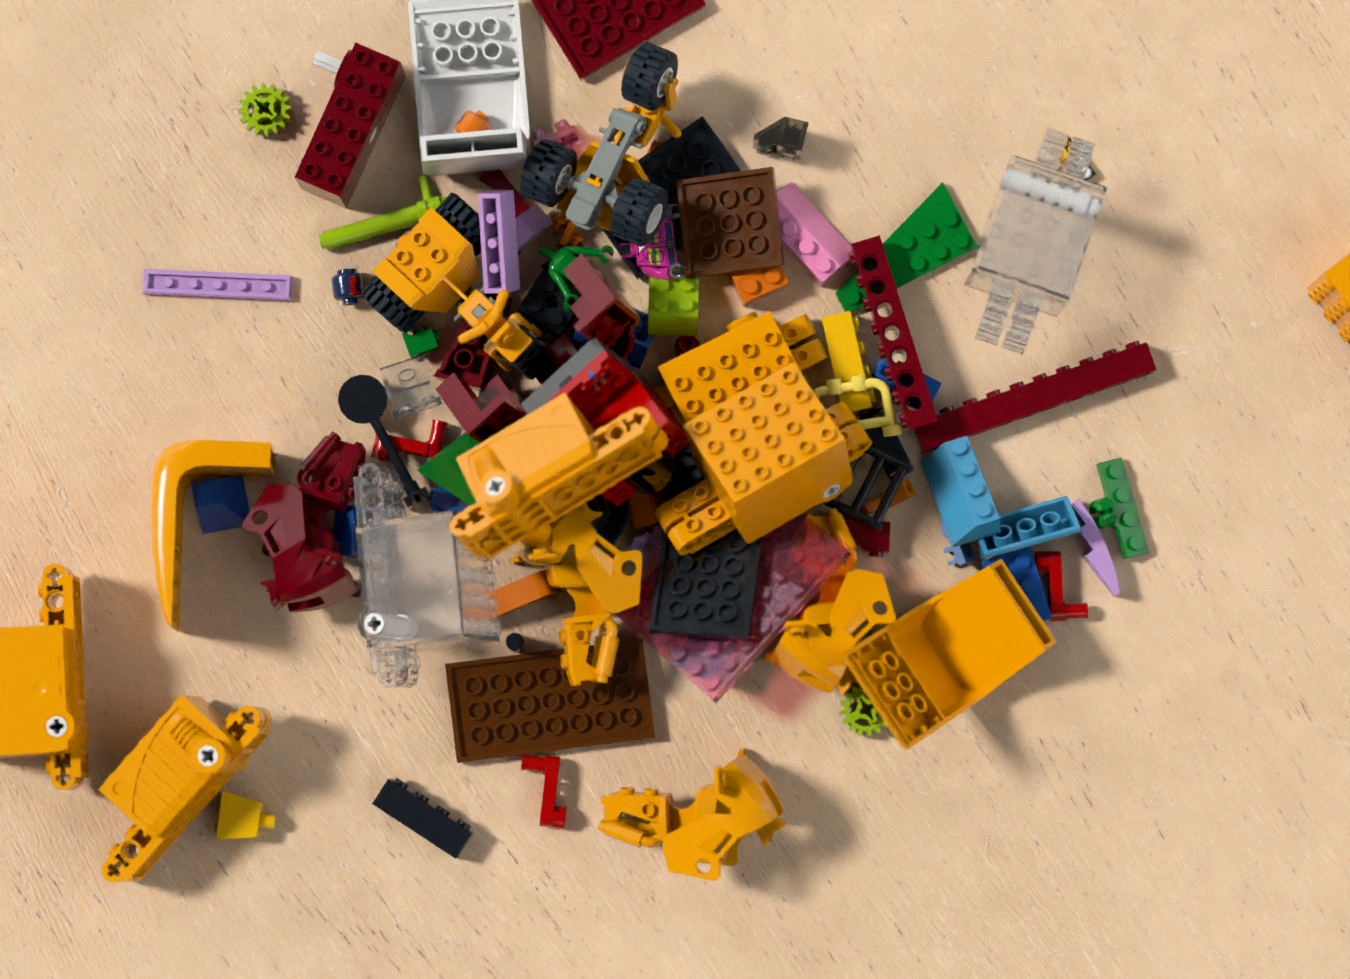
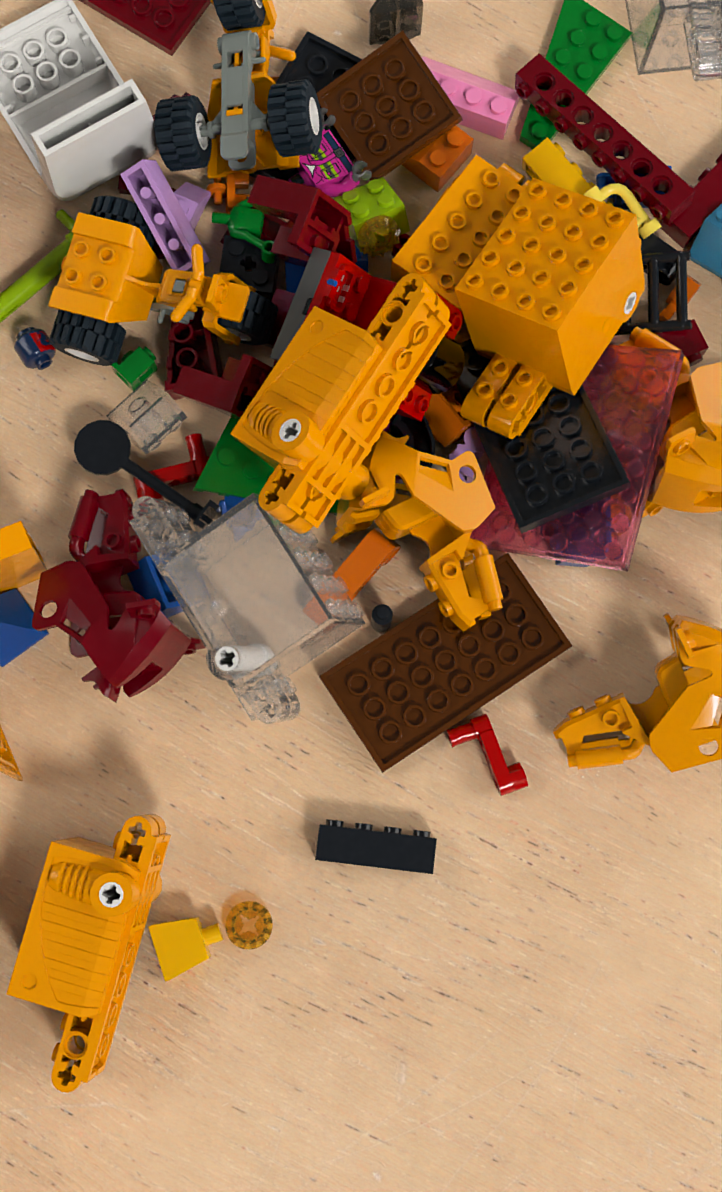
camera: 30 degrees left, 5 degrees down
(288, 822) = (249, 939): none -> clear yellow gear
(673, 328) = (385, 227): none -> clear yellow gear

